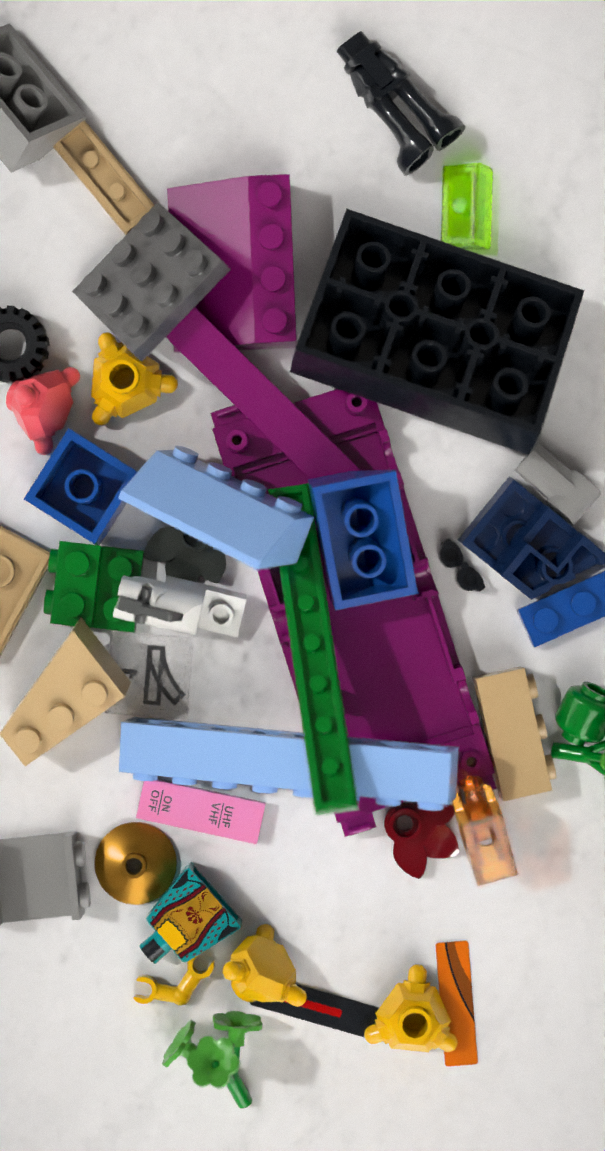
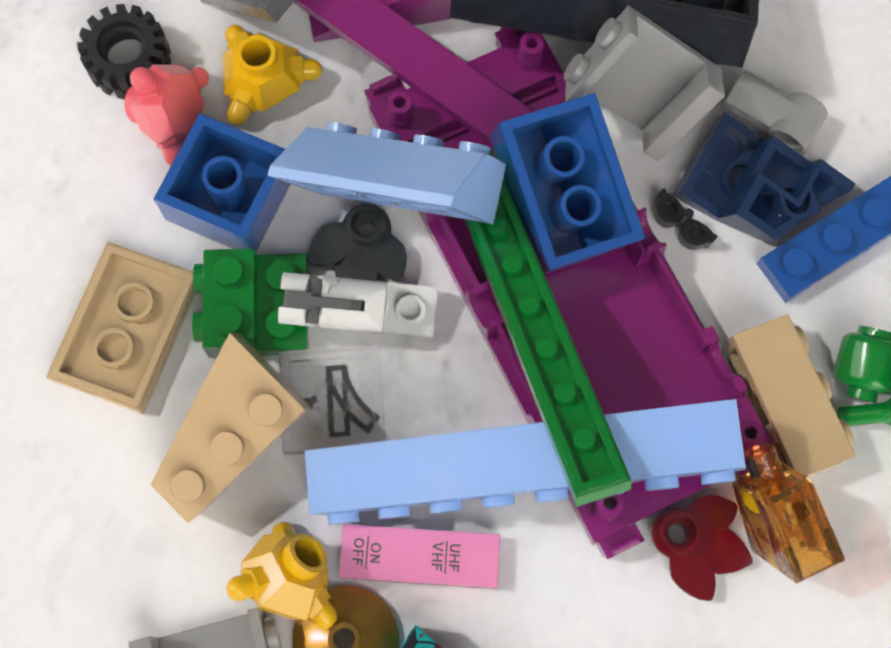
camera: 15 degrees left, 15 degrees down
(95, 815) = (286, 577): none -> yellow rock
(451, 450) = (646, 79): none -> light grey panel

